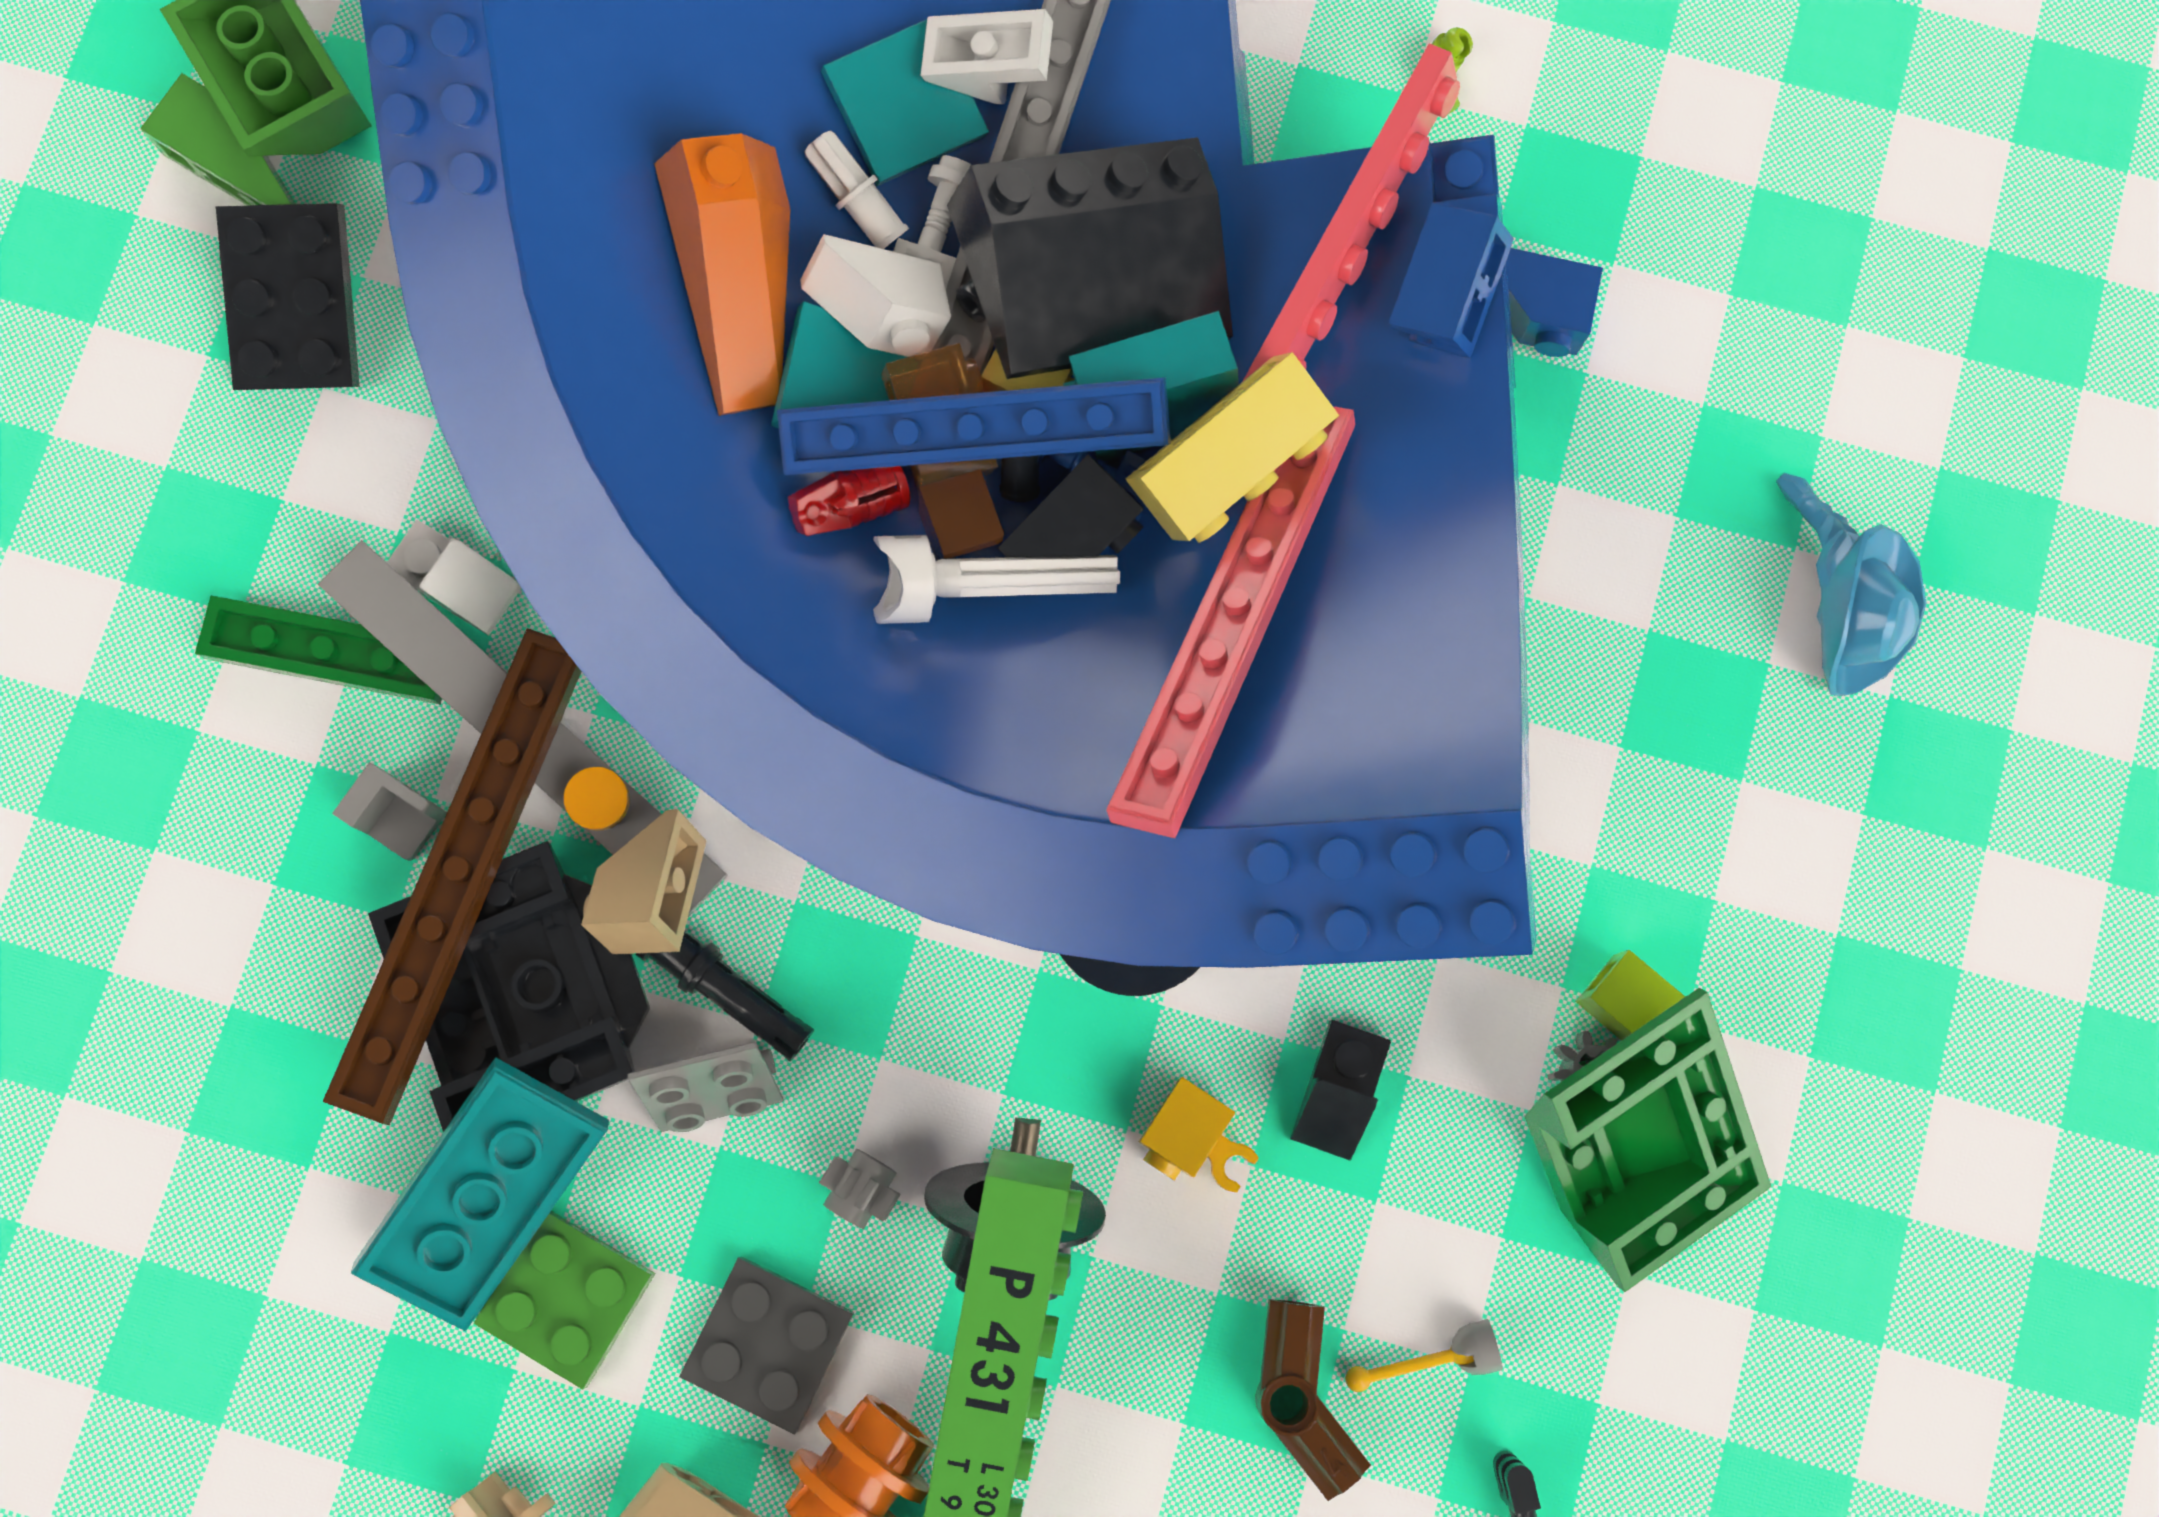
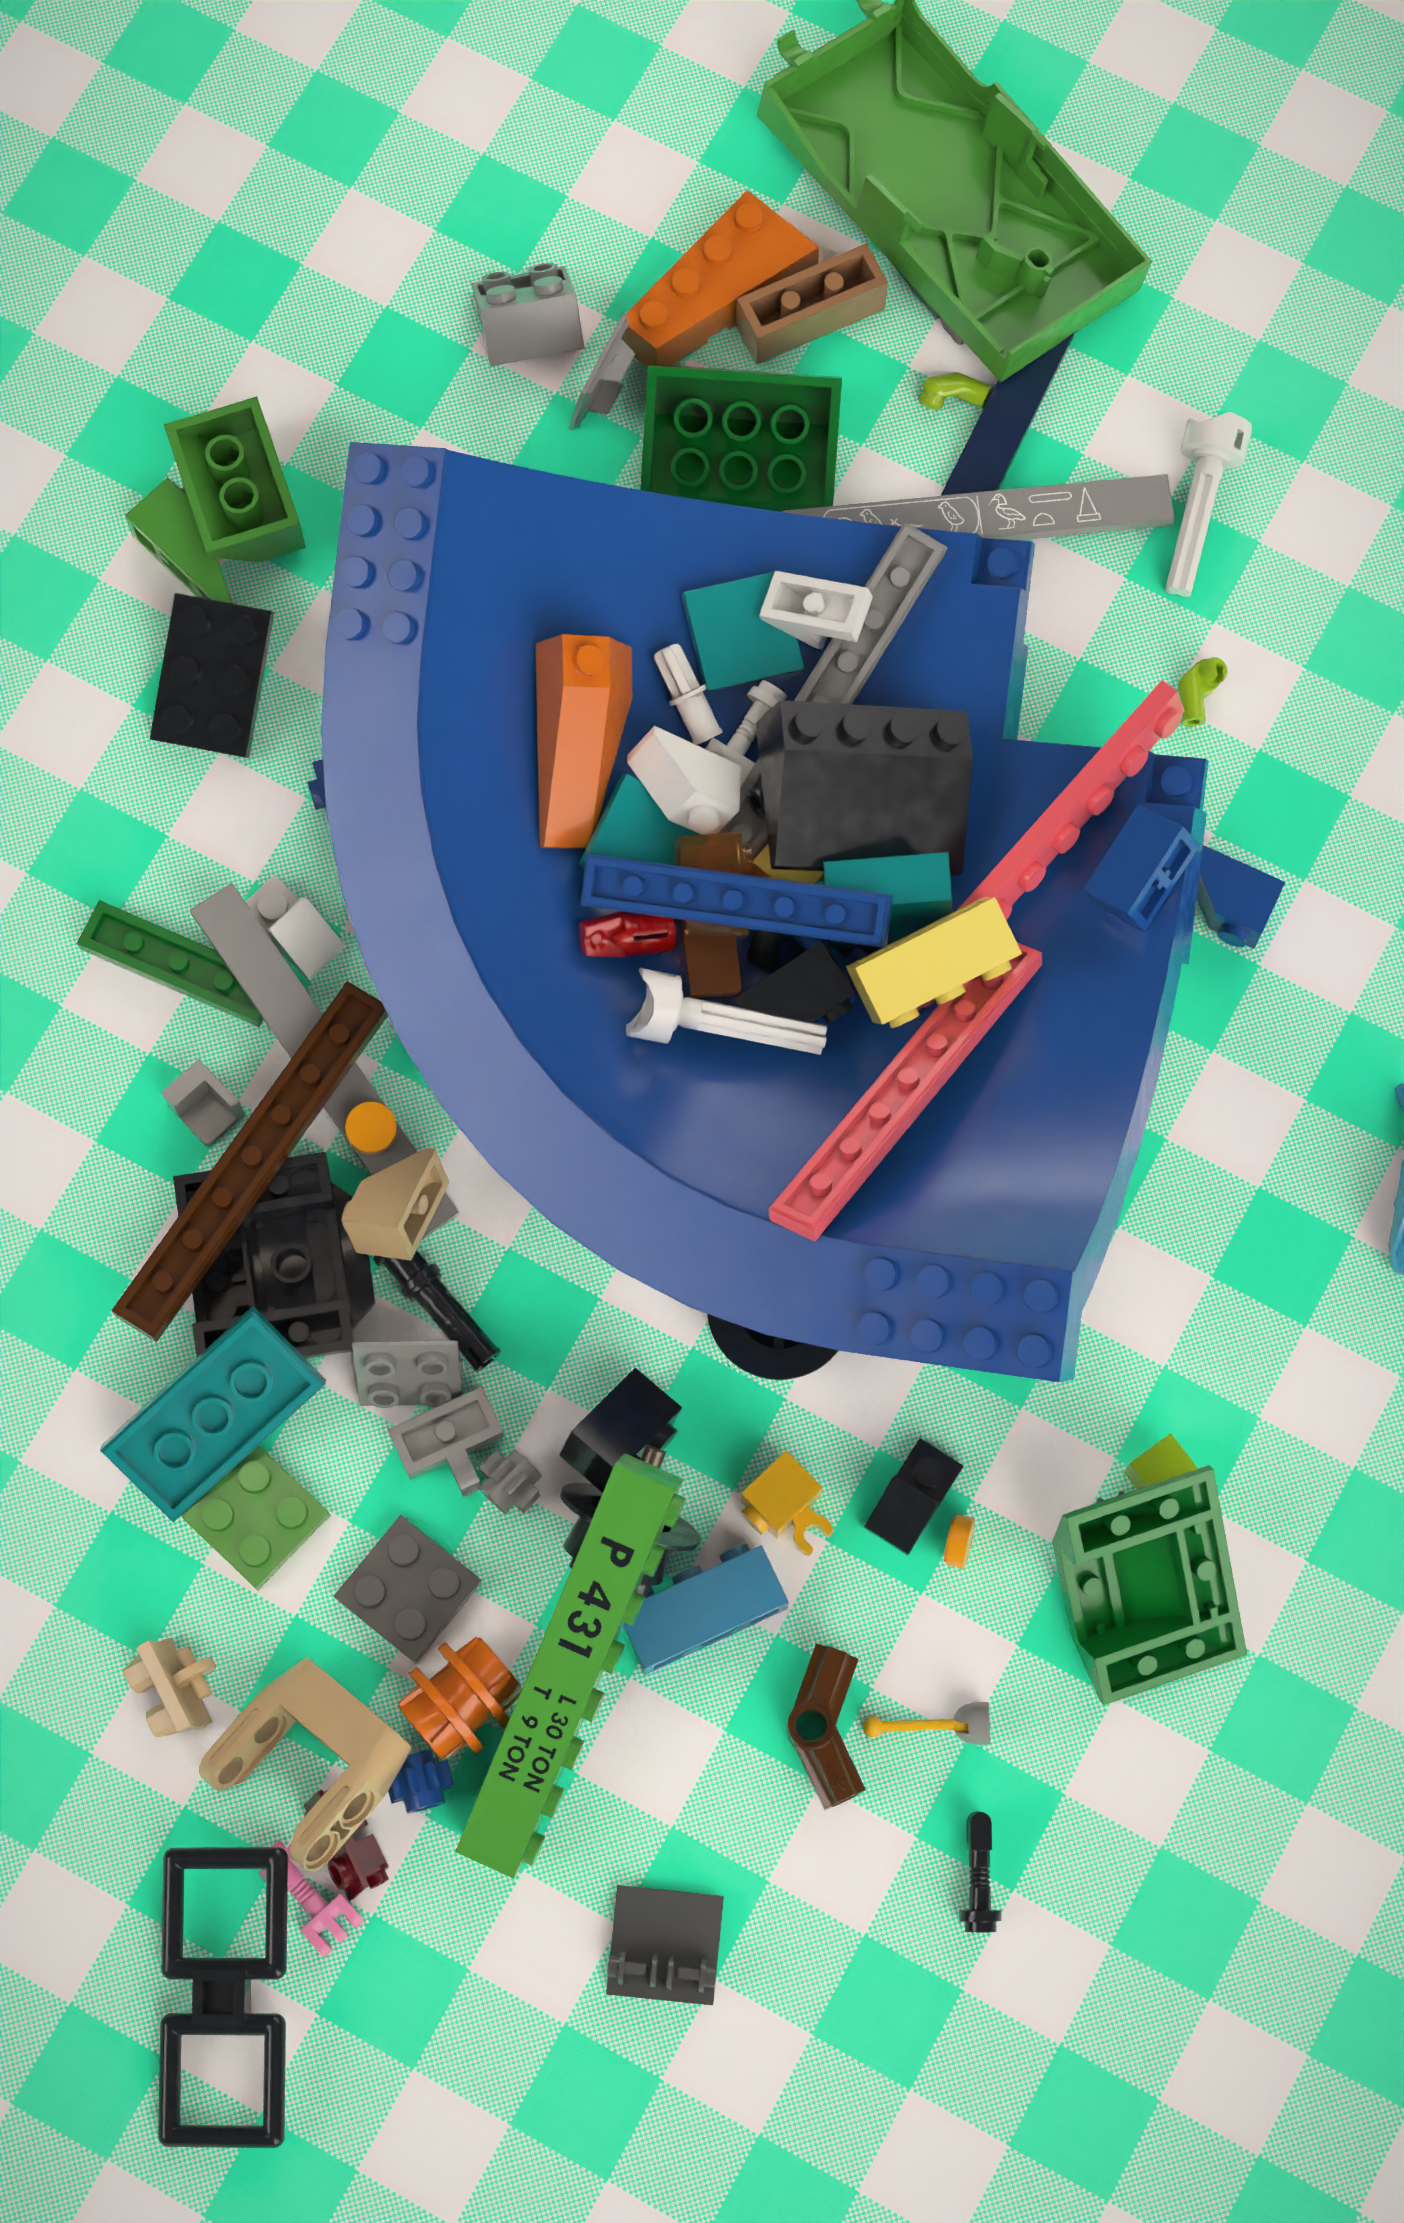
camera: 15 degrees right, 5 degrees down
(773, 1149) = (448, 1436): none -> light grey plate
(980, 1098) = (620, 1424): none -> black brick
(1130, 1285) = (705, 1607): none -> dark azure brick
(1408, 1133) = (959, 1541): none -> light orange tile

